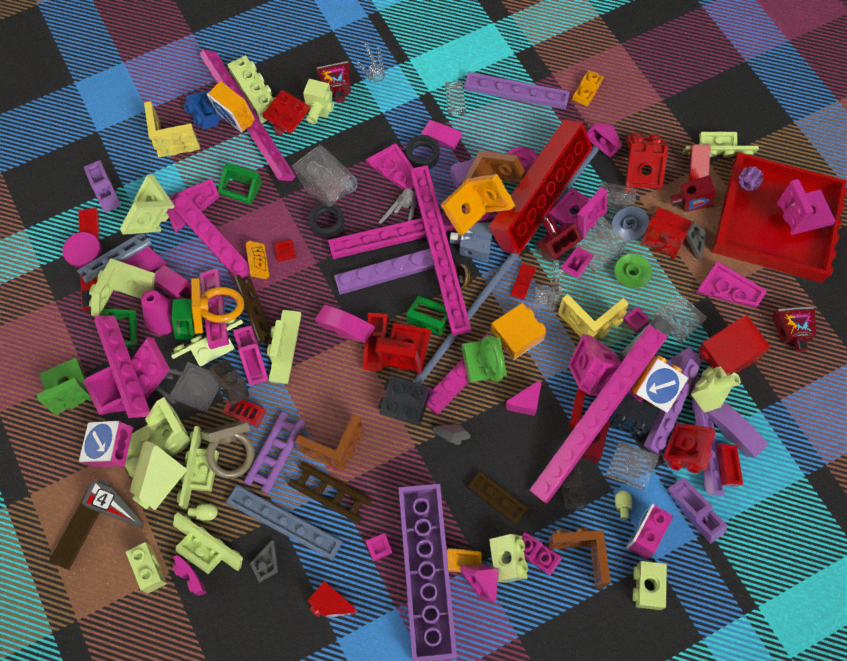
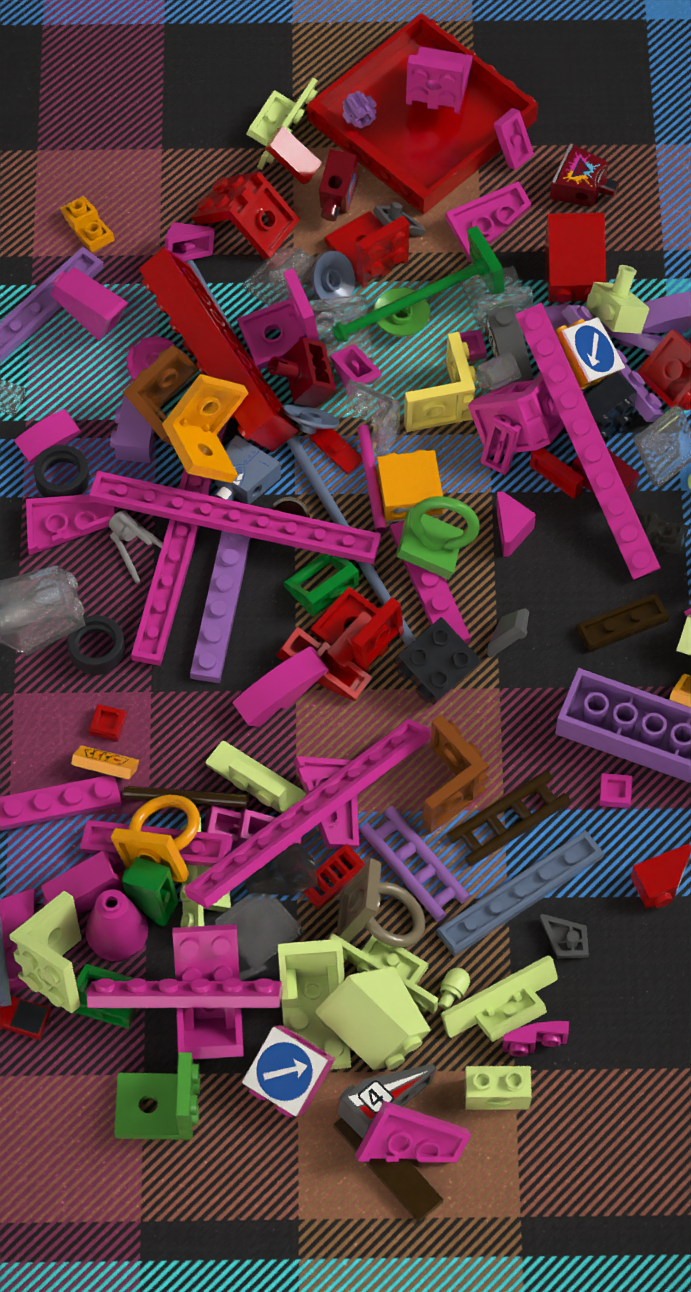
camera: 65 degrees left, 5 degrees down
(89, 526) = (411, 1135): none -> dark pink wing
(265, 376) = (306, 813): none -> dark pink plate
(292, 386) = (342, 824): none -> dark pink wing
(525, 300) = (371, 478): none -> dark pink bar
(530, 256) = (310, 418): none -> sand blue dish
(532, 109) = (88, 302): none -> dark pink slope
(572, 370) = (506, 428): none -> dark pink tile
(616, 340) = (498, 372): none -> clear slope
(688, 297) = (483, 264): none -> green tile
(794, 272) = (513, 139): none -> dark pink plate

